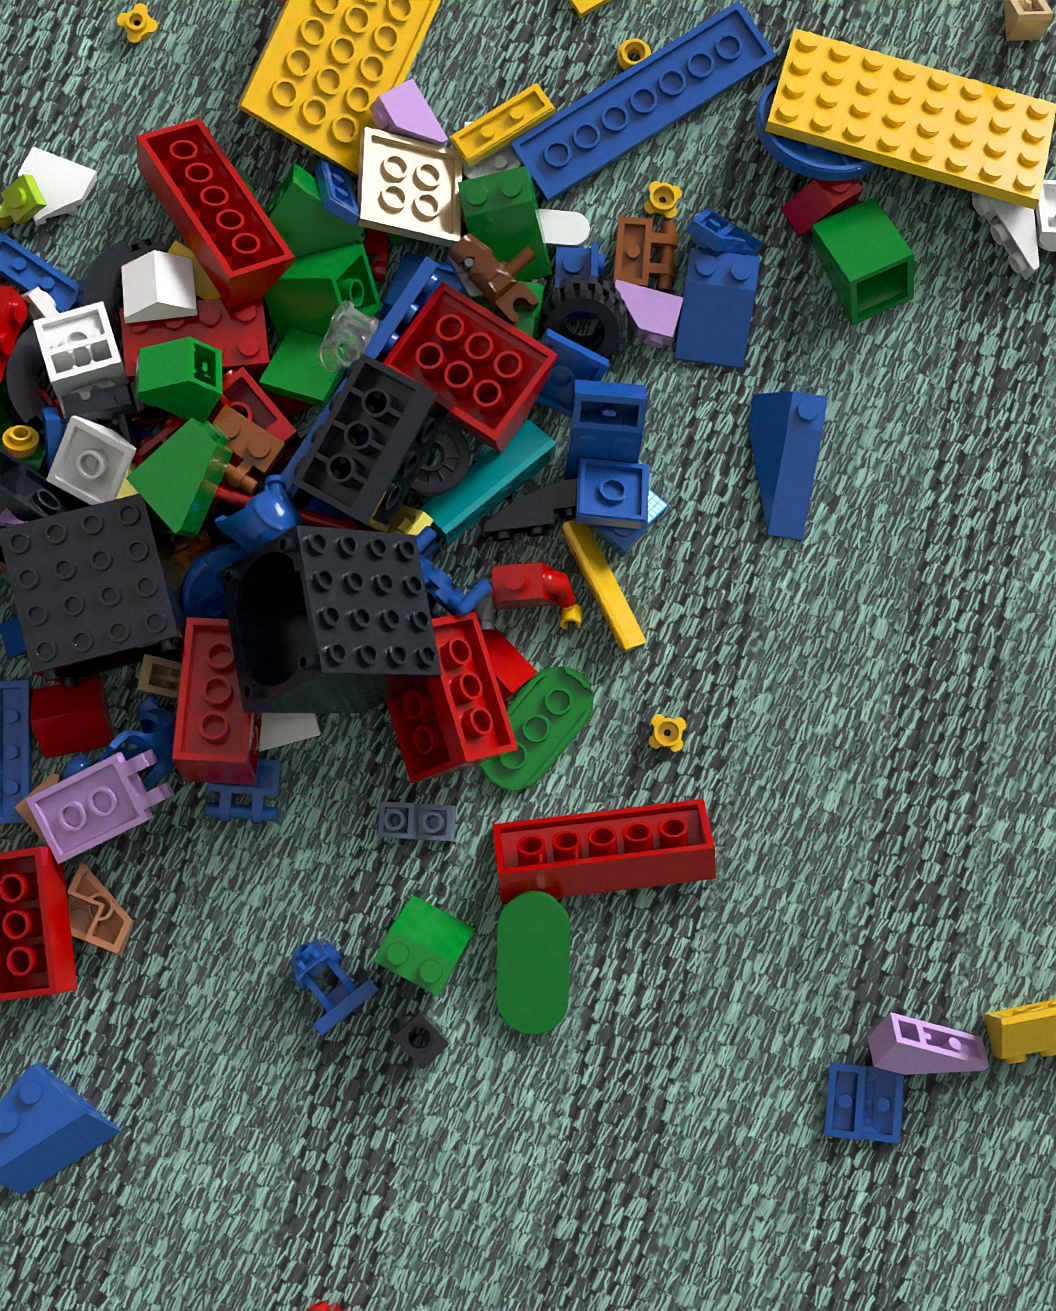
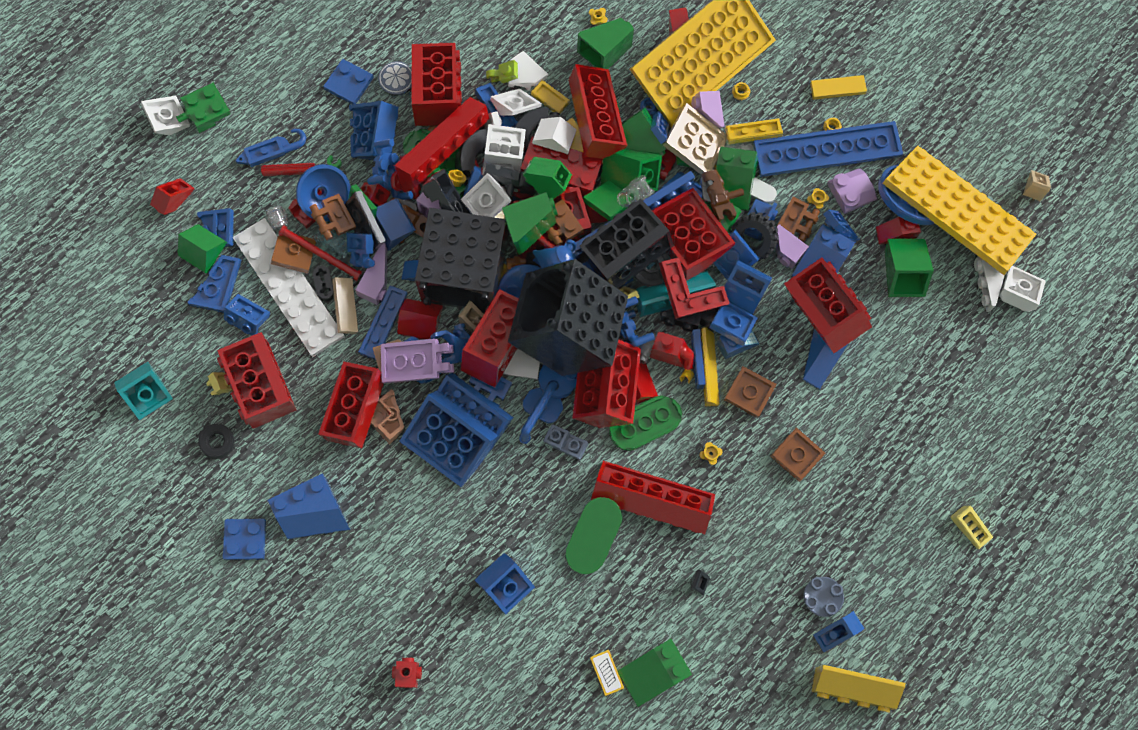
camera: 25 degrees right, 10 degrees down
(60, 253) = (514, 102): none -> white slope
(119, 213) = (550, 97): none -> yellow tile
(173, 71) = (605, 42): none -> green slope
(221, 883) = (455, 429): none -> blue slope
(292, 149) = (647, 101): none -> blue plate
(311, 960) = (482, 487): blue tile -> none
(352, 767) = (545, 402): none -> blue plate
(420, 1108) = (505, 583): none -> blue slope
(421, 1054) = (520, 557): black brick -> none
(424, 945) = (542, 502): green slope -> none
(449, 48) = (743, 87): none -> yellow plate
(511, 499) = (680, 297): none -> red plate
(577, 580) = (698, 359): none -> blue tile
(651, 1177) = (606, 672): none -> tile
(689, 597) = (750, 392): none -> dark orange plate
(715, 158) = (852, 190): none -> lavender slope
(729, 1143) = (654, 672): none -> green slope
(739, 960) = (699, 581): none -> black slope
(761, 393) = (829, 304): none -> red brick
(812, 671) = (797, 454): none -> dark orange plate
(864, 1103) = (734, 684): blue slope -> none
(924, 1048) = (775, 667): lavender slope -> none
(951, 892) = (823, 596): none -> sand blue dish
(999, 941) = (838, 631): none -> blue slope

